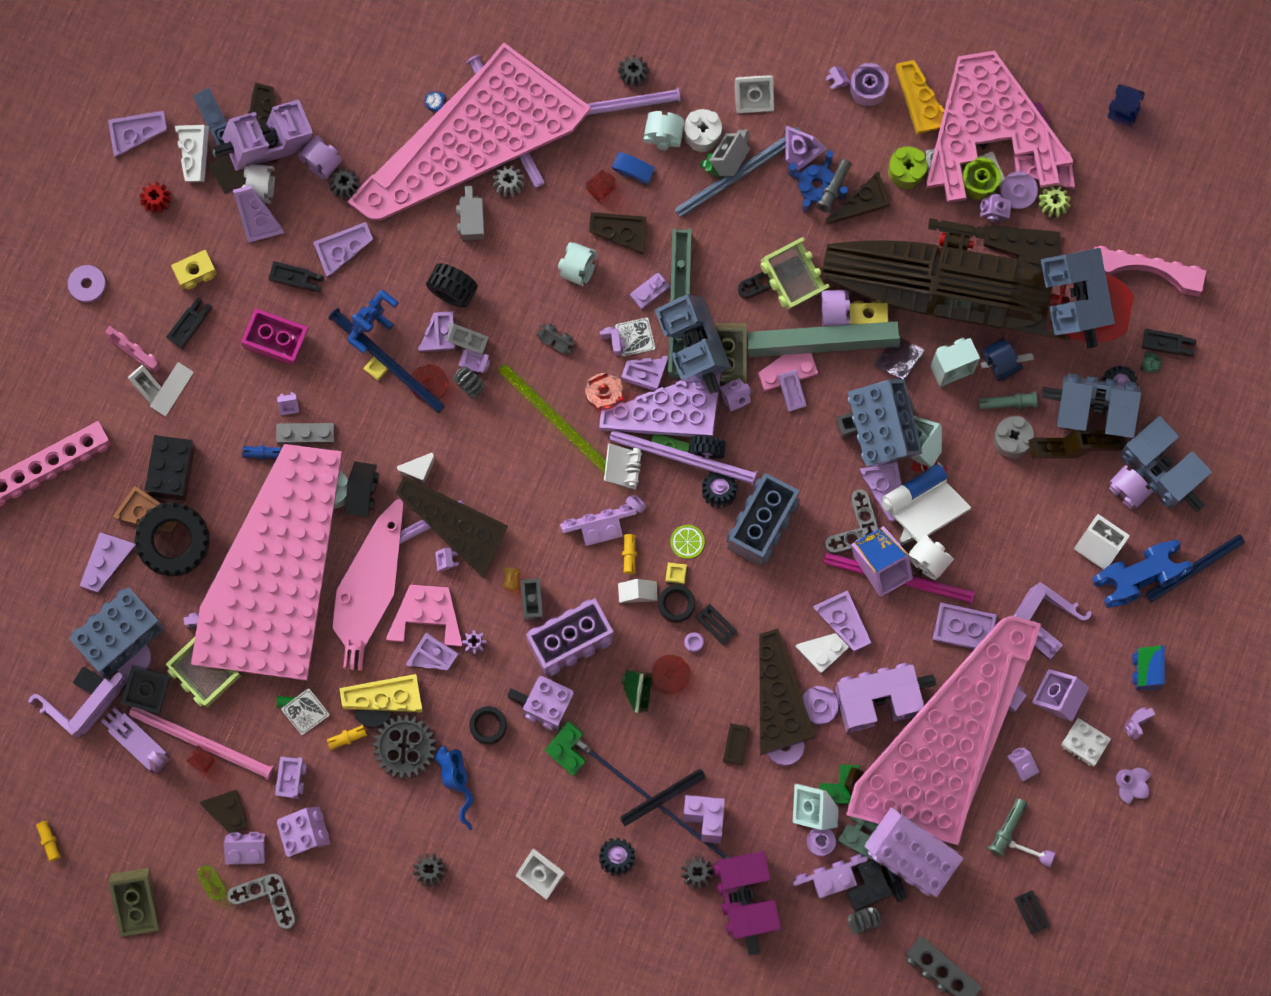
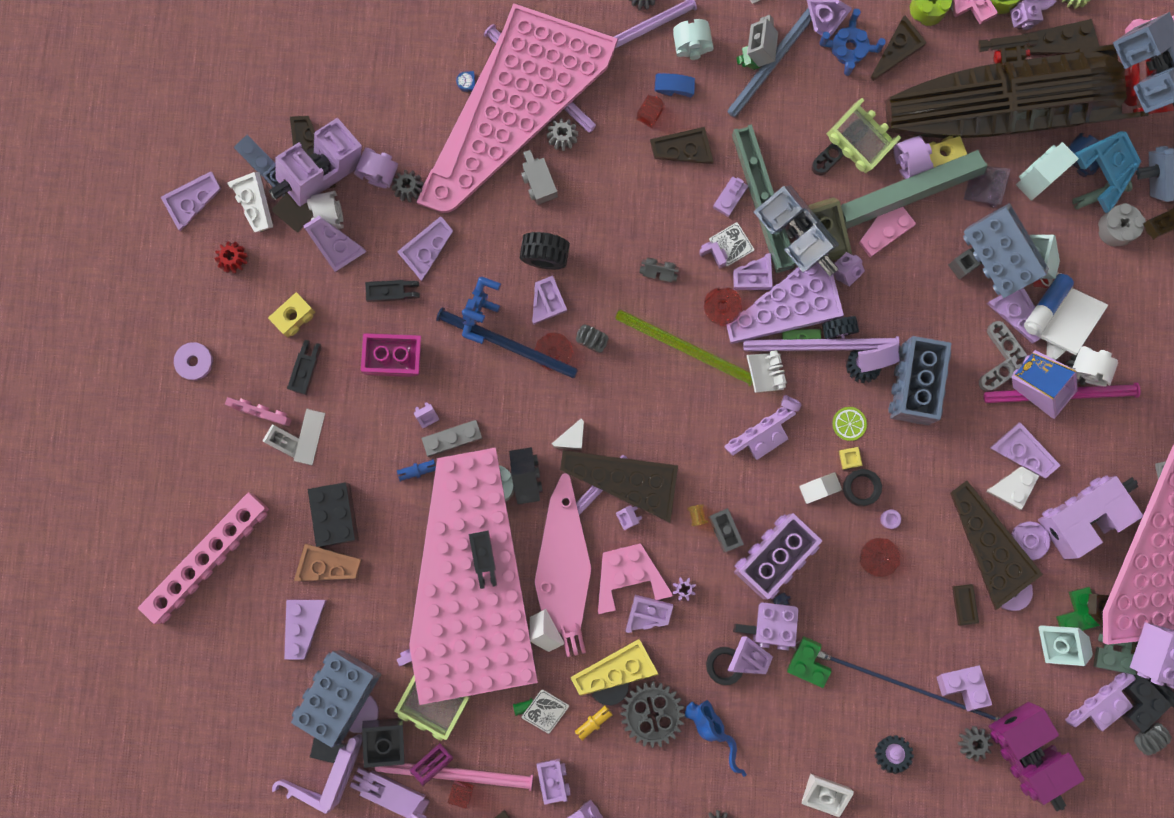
camera: 15 degrees left, 5 degrees up
(153, 520) = (367, 612): black tyre -> none
(184, 727) = (418, 776): none -> magenta tile
(295, 546) = (483, 556): none -> black hinge
(329, 638) = (544, 632): none -> white slope
(375, 369) = (498, 354): light yellow tile -> none
(466, 338) = (575, 297): light grey hinge -> none
(474, 361) = (590, 316): lavender bracket -> none
(512, 724) = (750, 658): none -> lavender wing
(563, 680) = (782, 599): none -> dark blue plate
(577, 263) = (656, 192): light aqua brick -> none
(629, 554) = (801, 454): yellow pin -> none
(638, 689) = (855, 583): dark green slope -> none
(662, 797) = (916, 681): black axle -> none
(700, 120) = (728, 28): white brick -> none
(705, 613) = (920, 501): black tile -> none
(730, 484) = (878, 358): none -> lavender slope
(792, 390) = (898, 247): lavender plate -> none
(821, 842) = (1082, 676): lavender plate -> none
(831, 193) = (870, 48): dark grey pin -> none
(962, 626) = (1138, 421): lavender tile -> none
(1024, 372) = (1117, 161): none -> dark azure wing

